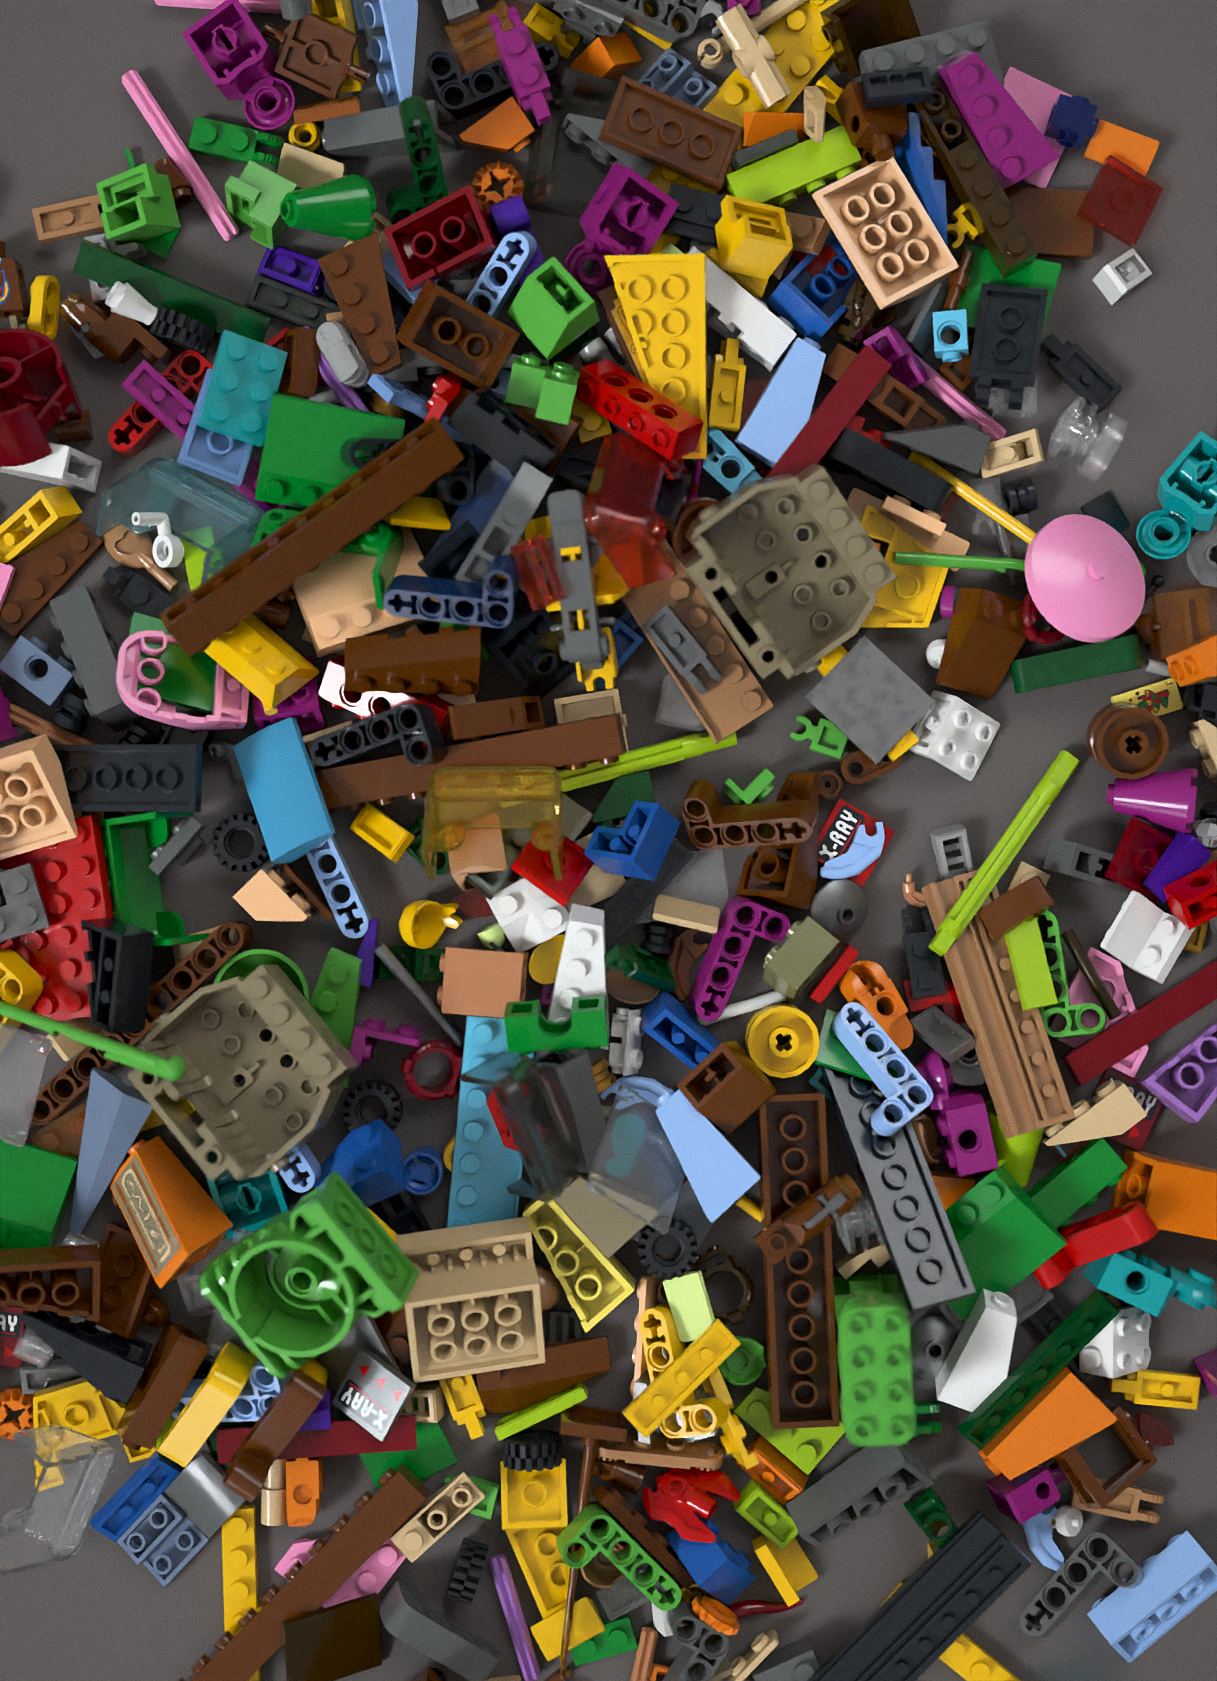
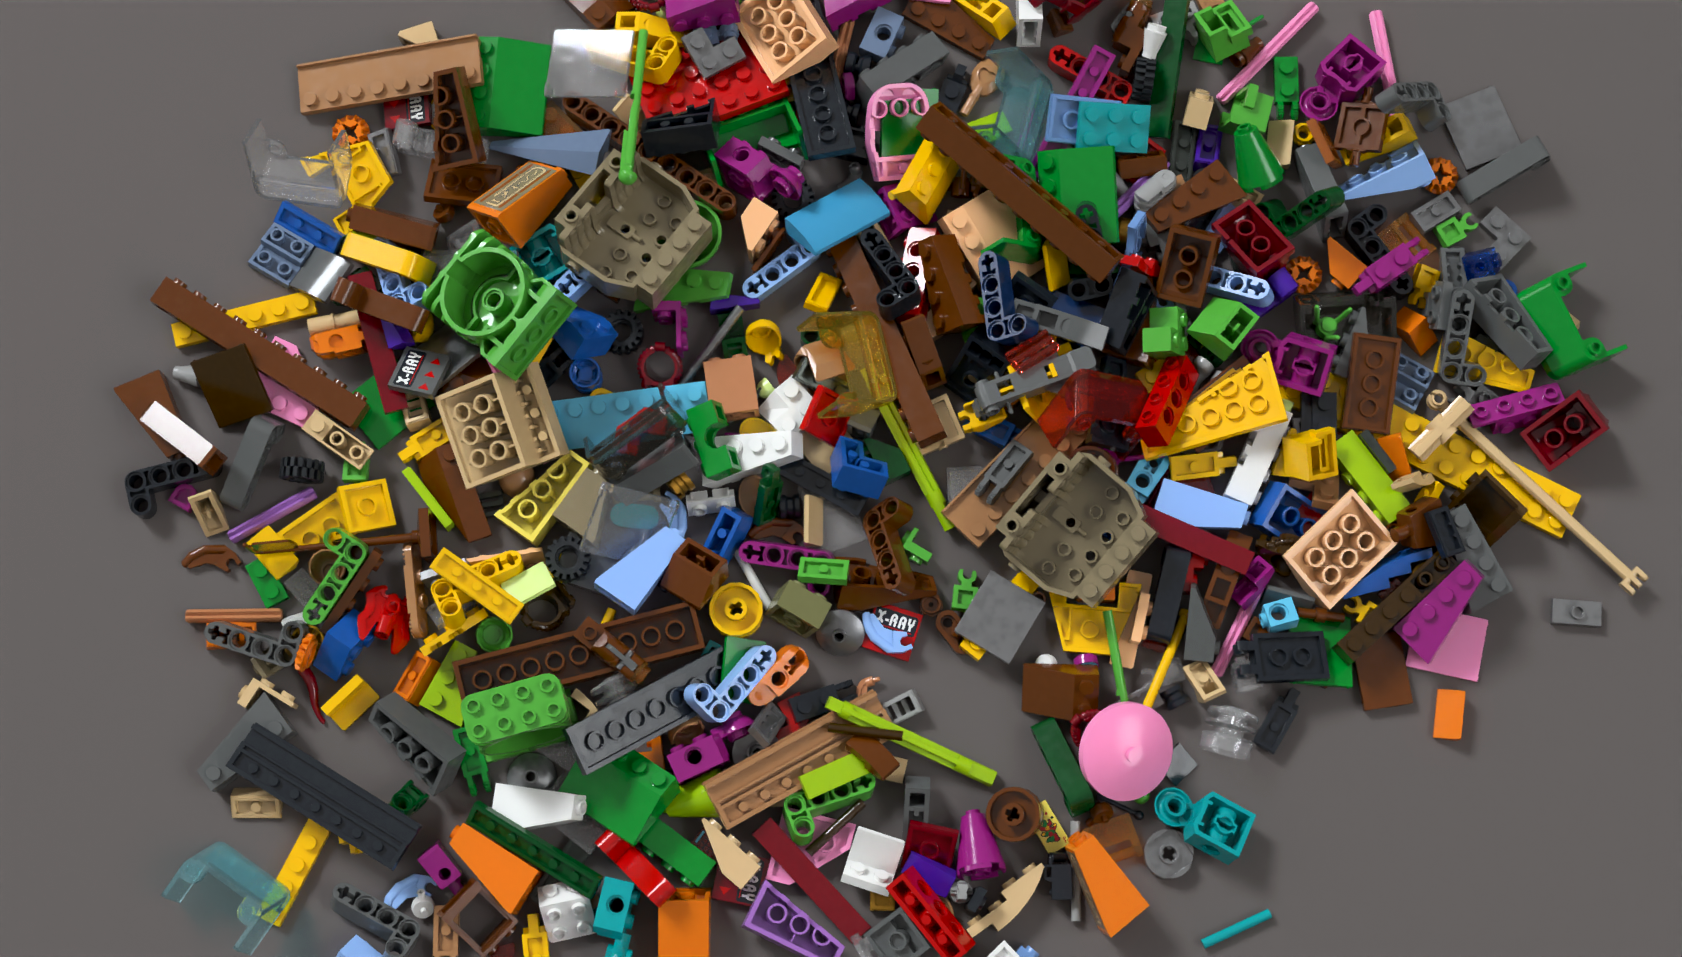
camera: 85 degrees right, 10 degrees down
(100, 733) = (847, 85): none -> magenta tile
(100, 1357) = (404, 184): black wedge -> none
(166, 547) = (989, 103): white plate -> none
(199, 889) = (753, 174): none -> magenta brick
(240, 267) = (1198, 109): none -> tan slope
(532, 1450) = (399, 497): black tyre -> none
(577, 171) = (1327, 326): none -> bright green plant
(620, 1474) = (393, 565): reddish brown hinge -> none
(762, 917) = (823, 571): none -> bright green plate
(766, 1514) = (383, 679): lime slope -> none
(833, 973) = (793, 638): red tile -> none
(954, 734) = (988, 689): white bracket -> none
(985, 909) = (865, 731): none -> dark brown bar
(1072, 121) = (1458, 671): clear blue brick -> none
(1120, 201) = (1411, 721): clear red tile -> none
(1121, 276) = (1357, 736): white slope -> none

